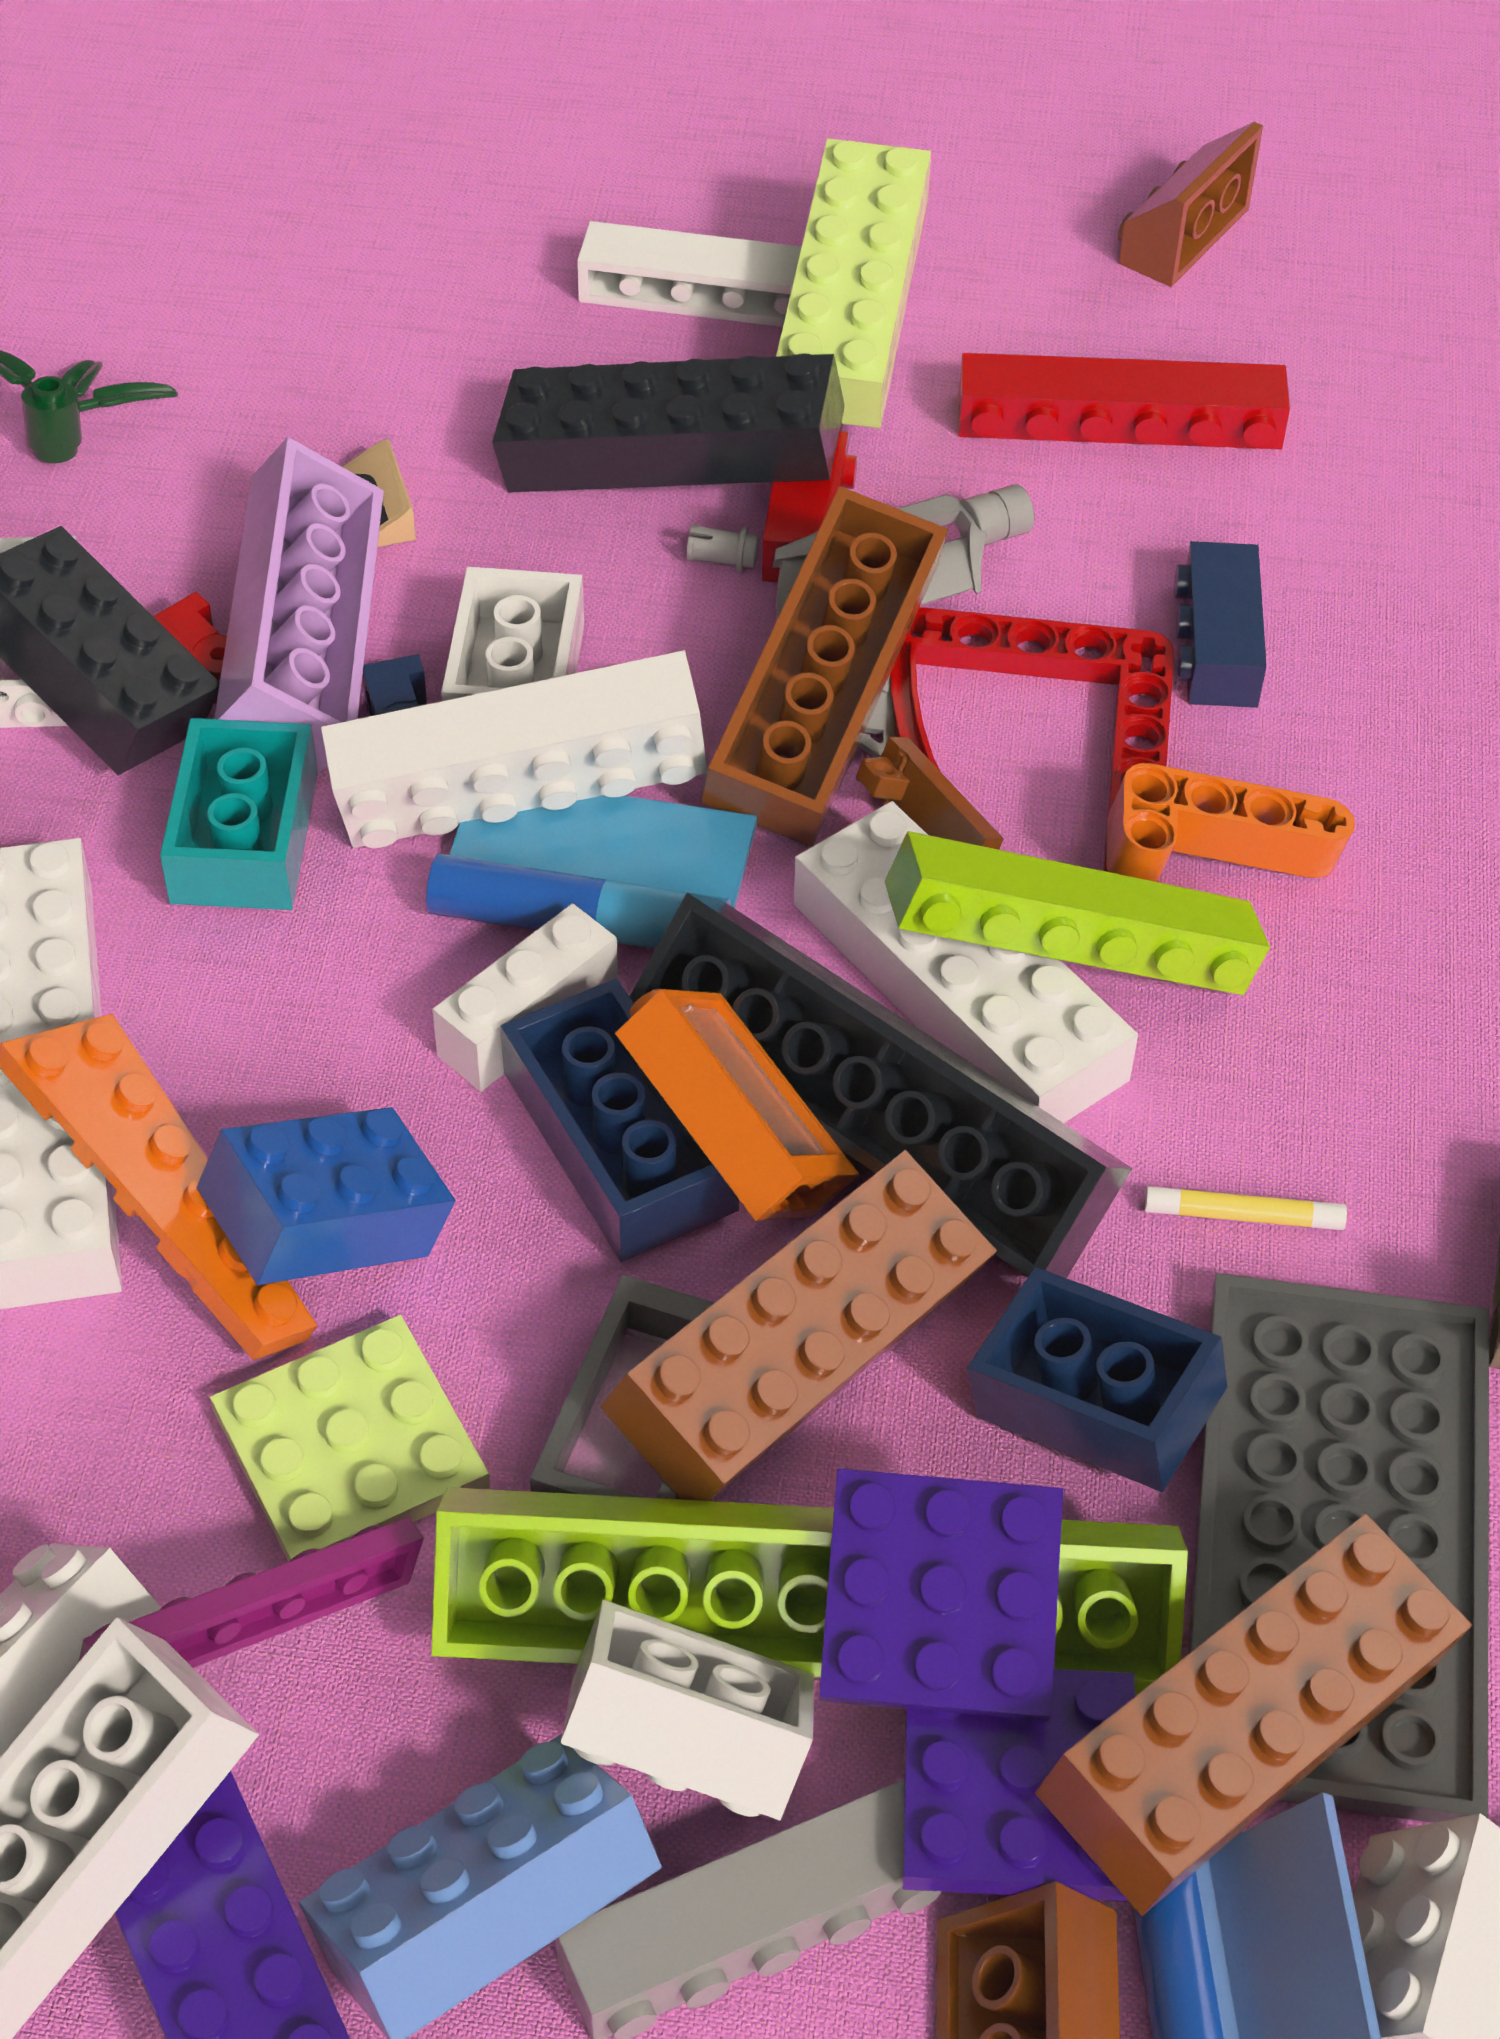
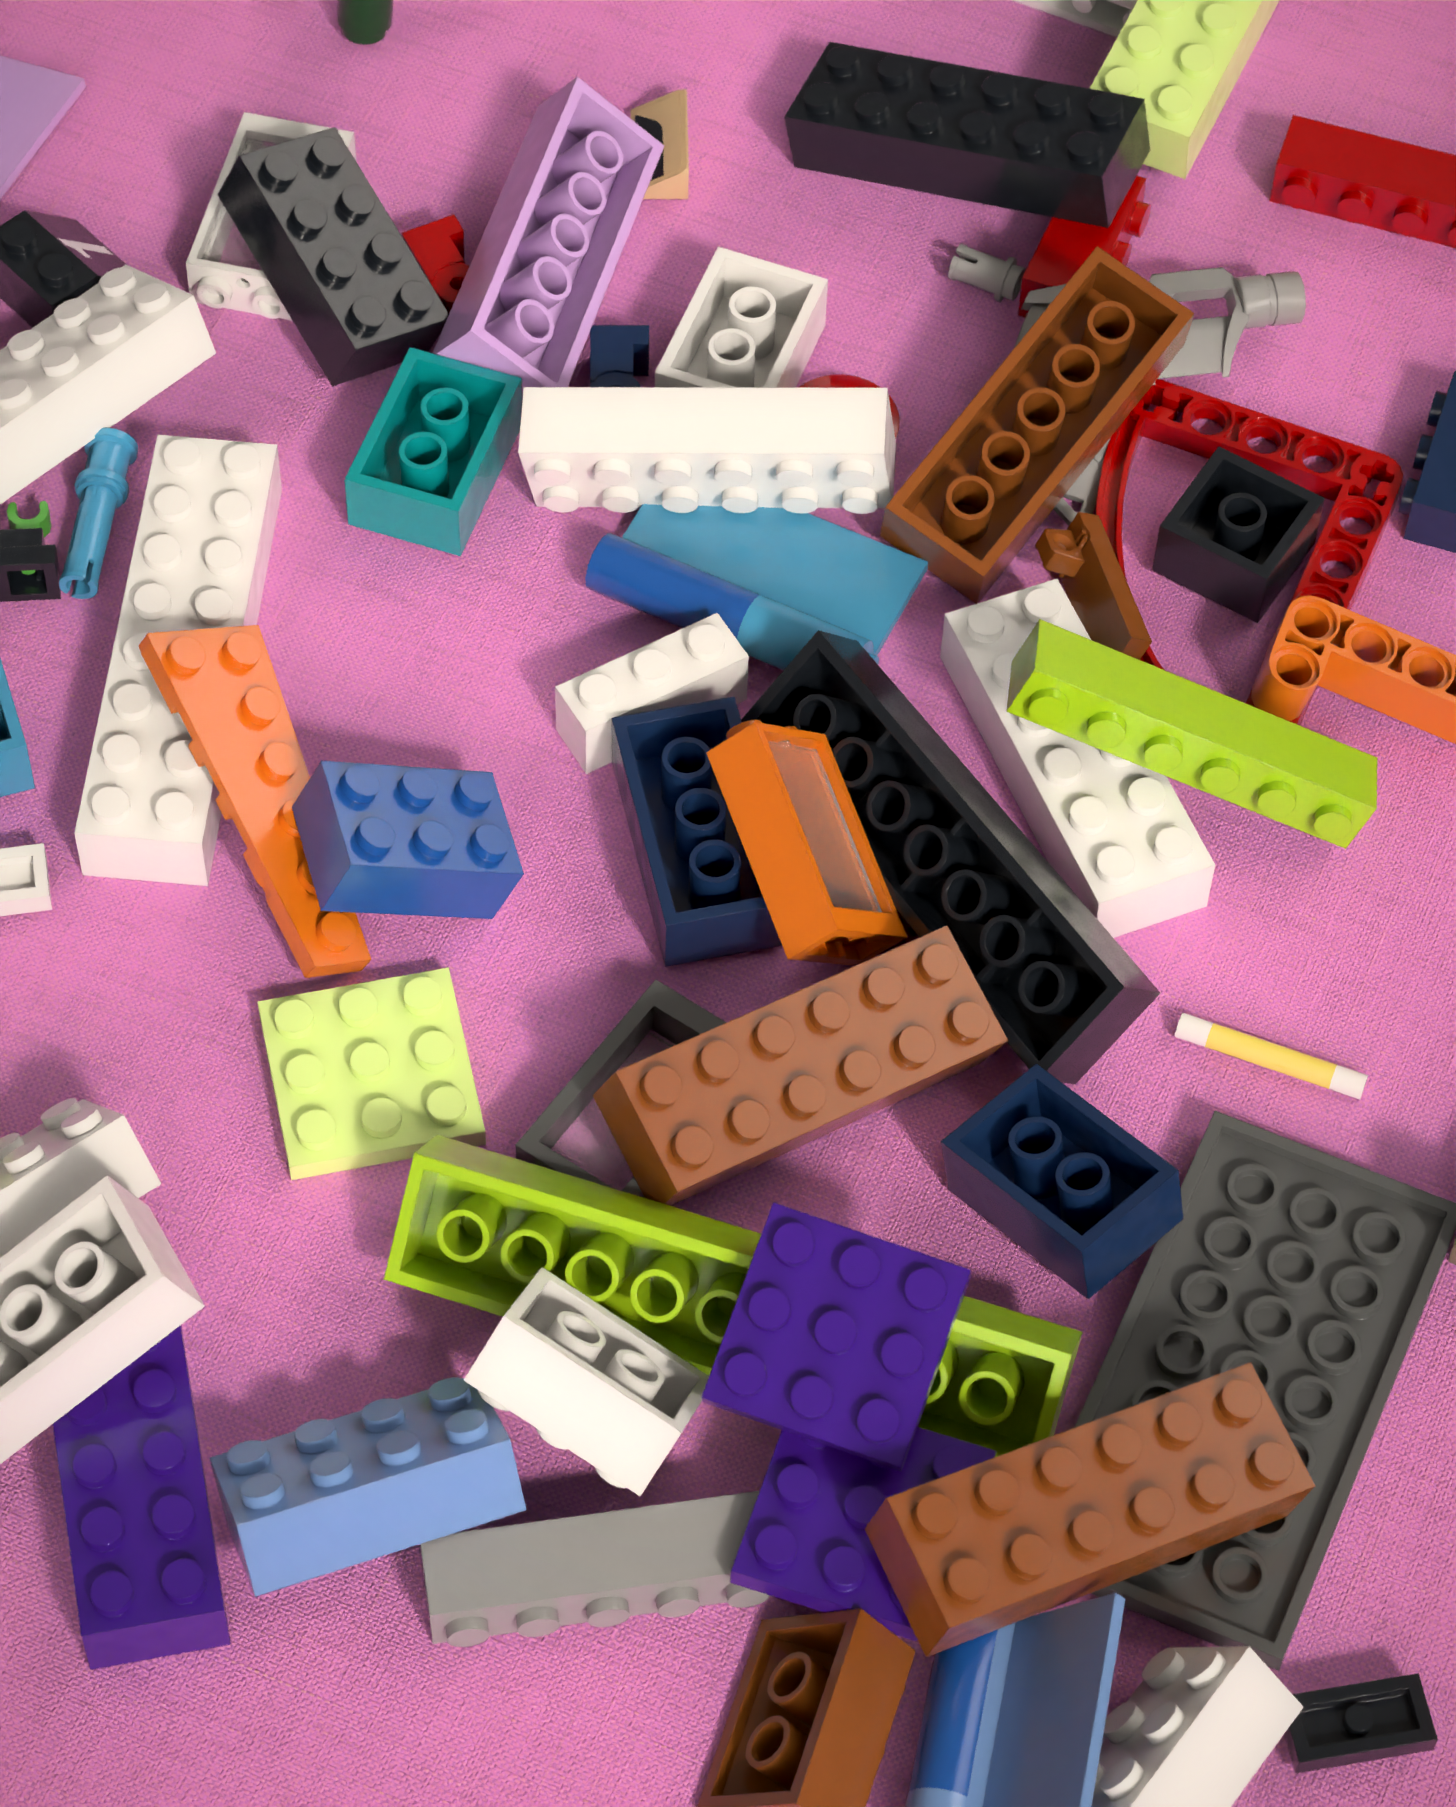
camera: 15 degrees right, 5 degrees up
(285, 1596) = (272, 1194): magenta plate -> none
(1043, 727) = (1238, 534): none -> black brick

